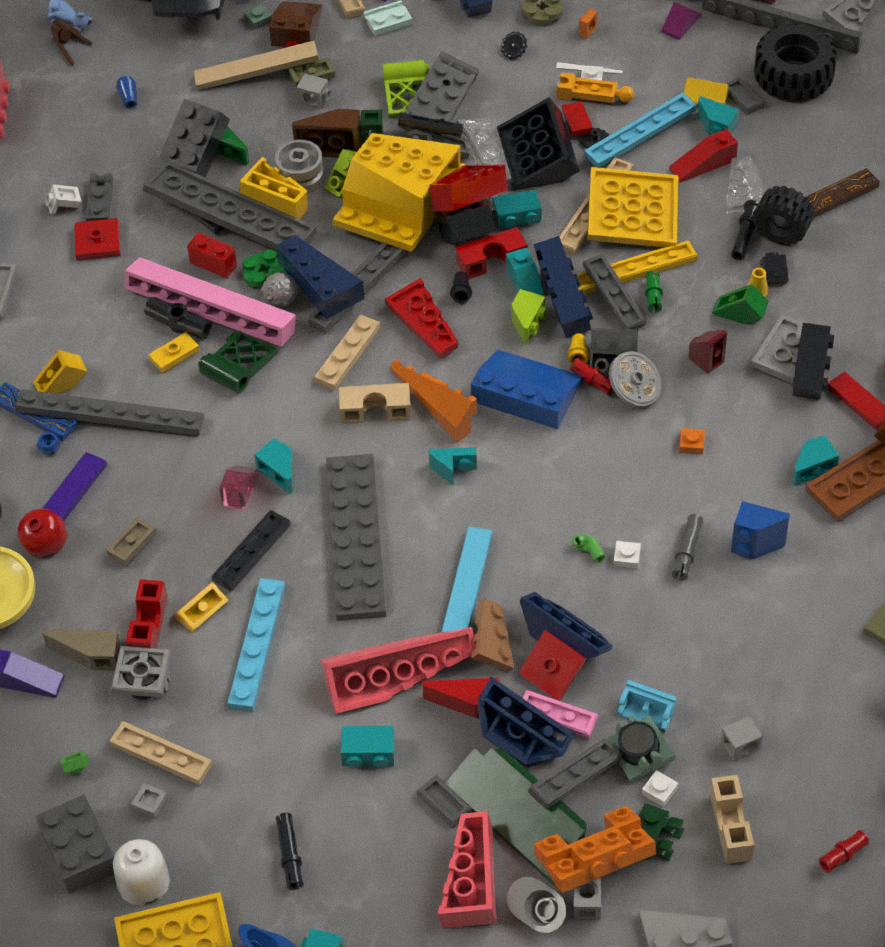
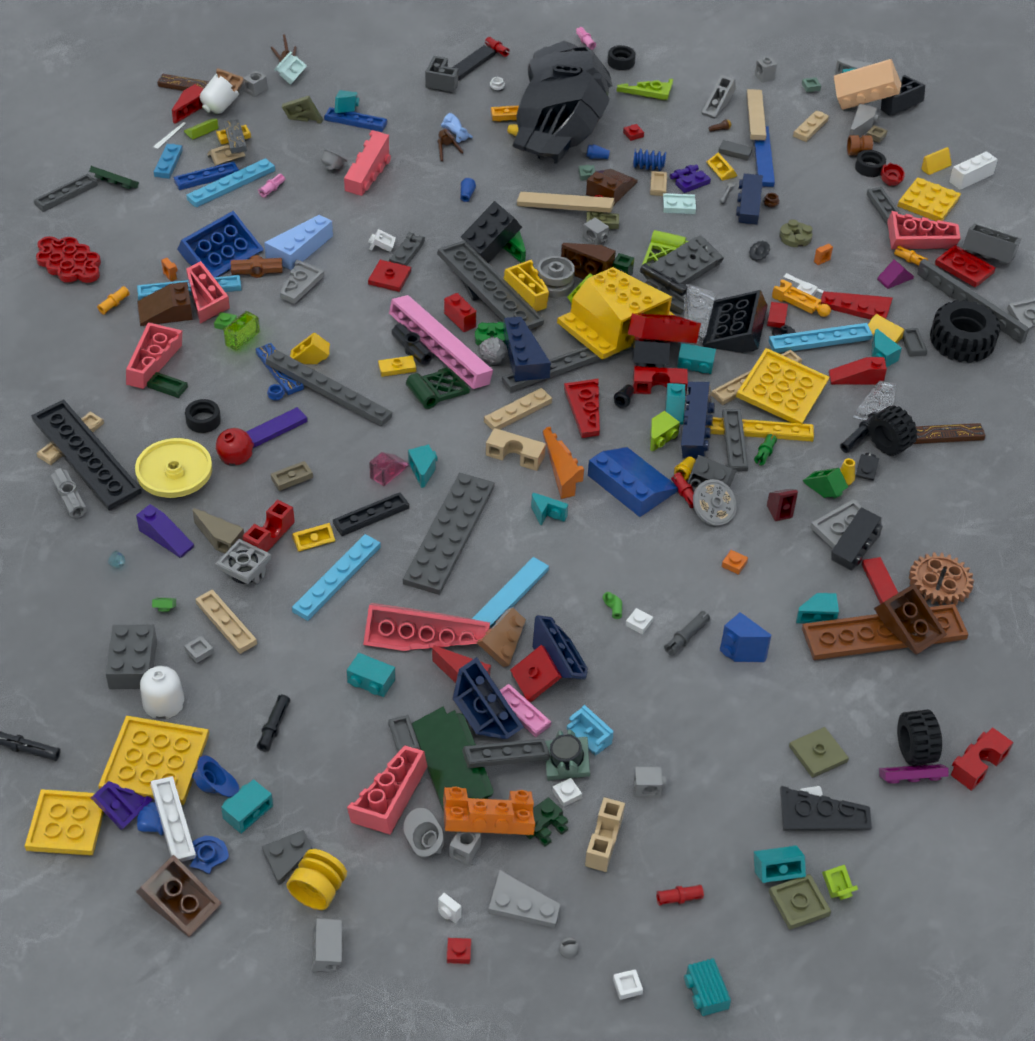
camera: 20 degrees right, 5 degrees down
(659, 72) = (857, 305): none -> red wing

